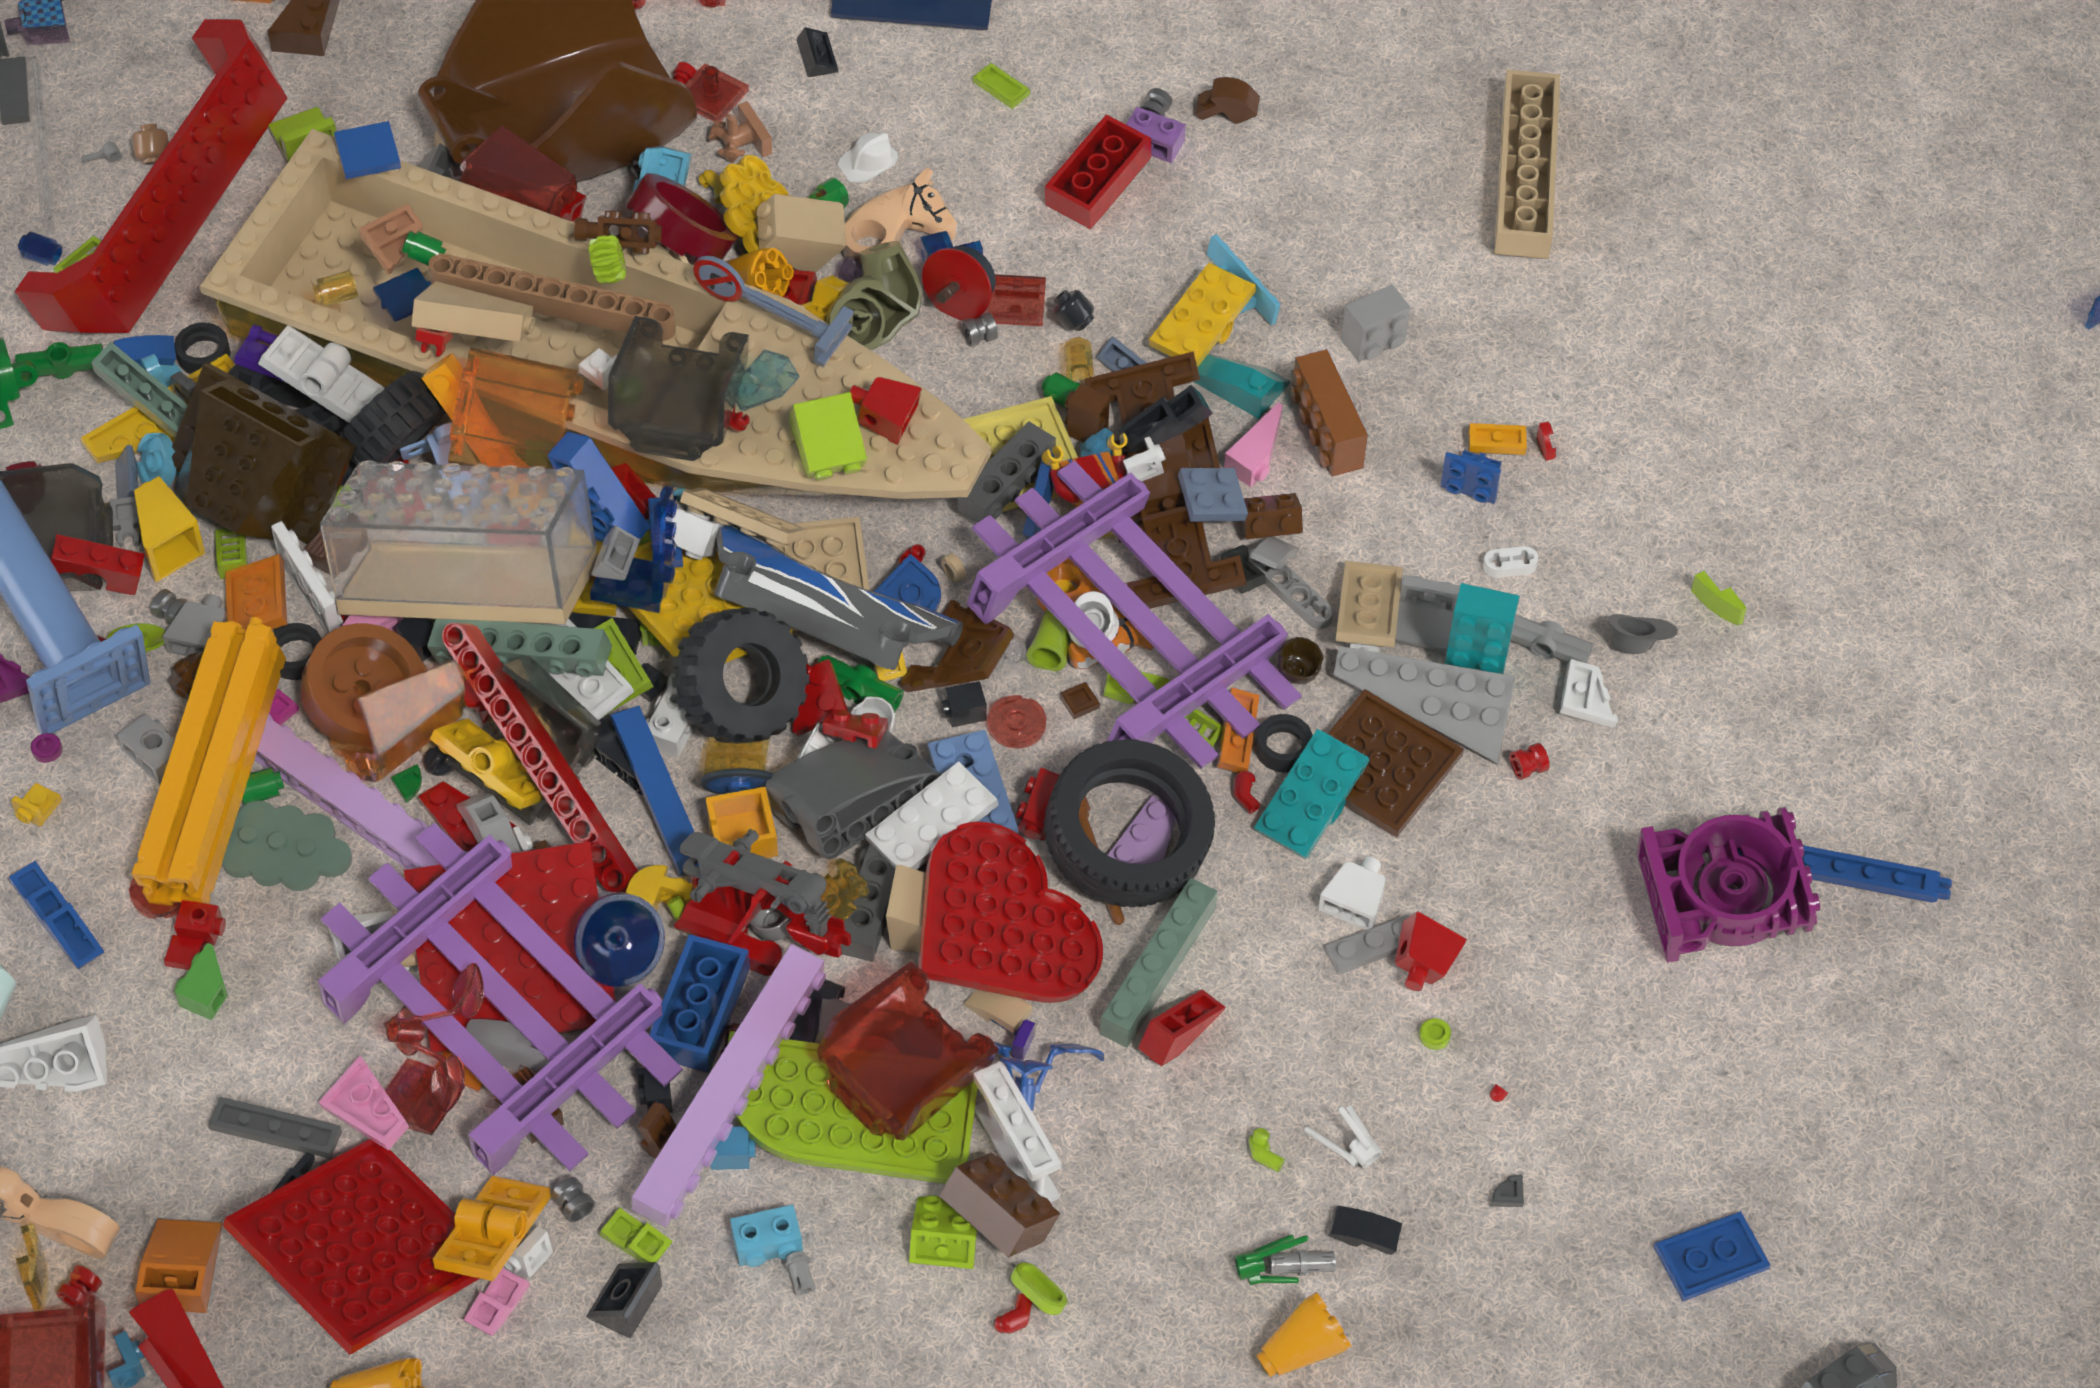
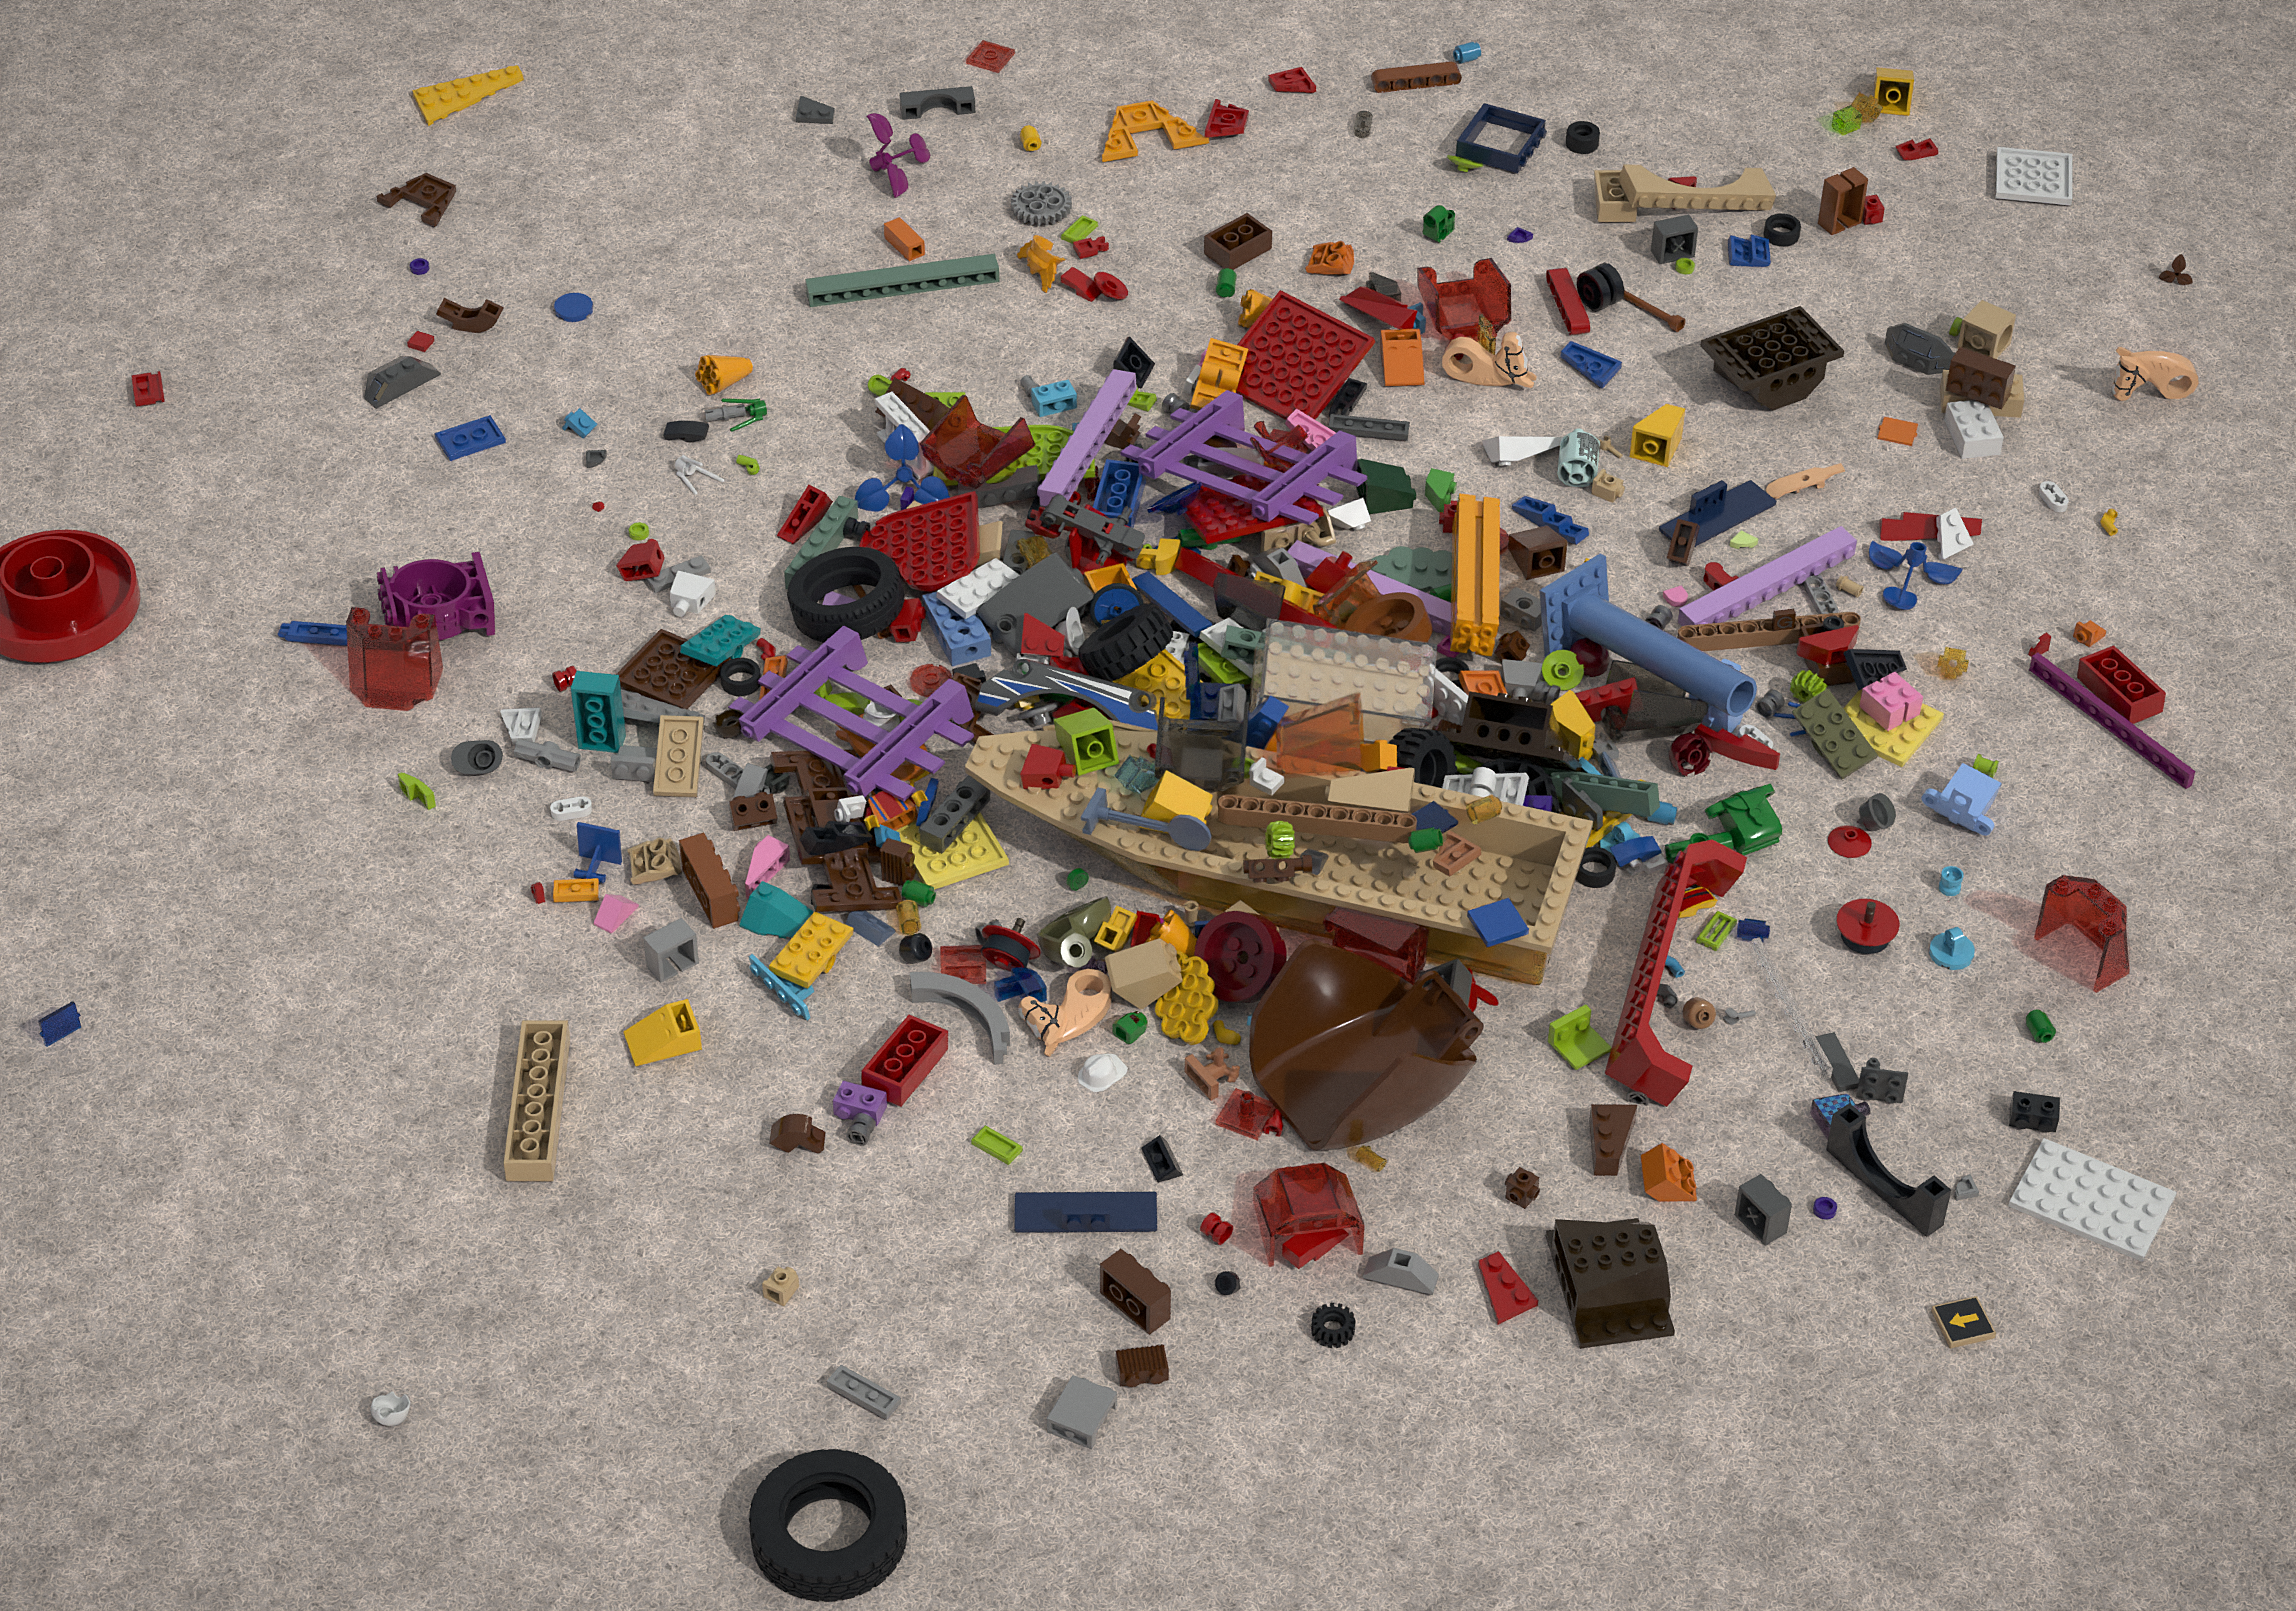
camera: 175 degrees right, 10 degrees down
(87, 414) = (1664, 814): none -> dark azure brick
(97, 840) = (1538, 552): none -> reddish brown slope
(286, 983) = (1385, 487): none -> dark green slope
(408, 793) = (1329, 572): none -> red torso
(569, 254) = (1318, 860): none -> flat silver slope
(730, 310) = (1176, 797): none -> yellow slope
(1015, 248) = (967, 997): none -> light grey arch
(1100, 990) = (855, 529): none -> black wheel
(1212, 494) = (797, 796): sand blue plate -> none
(1380, 233) = (664, 1034): none -> yellow slope
(1398, 463) = (654, 860): none -> tan slope
(1443, 409) = (614, 912): none -> bright pink slope
(1539, 1260) = (579, 422): none -> dark azure bracket
(1784, 750) = (393, 663): none -> clear red windscreen

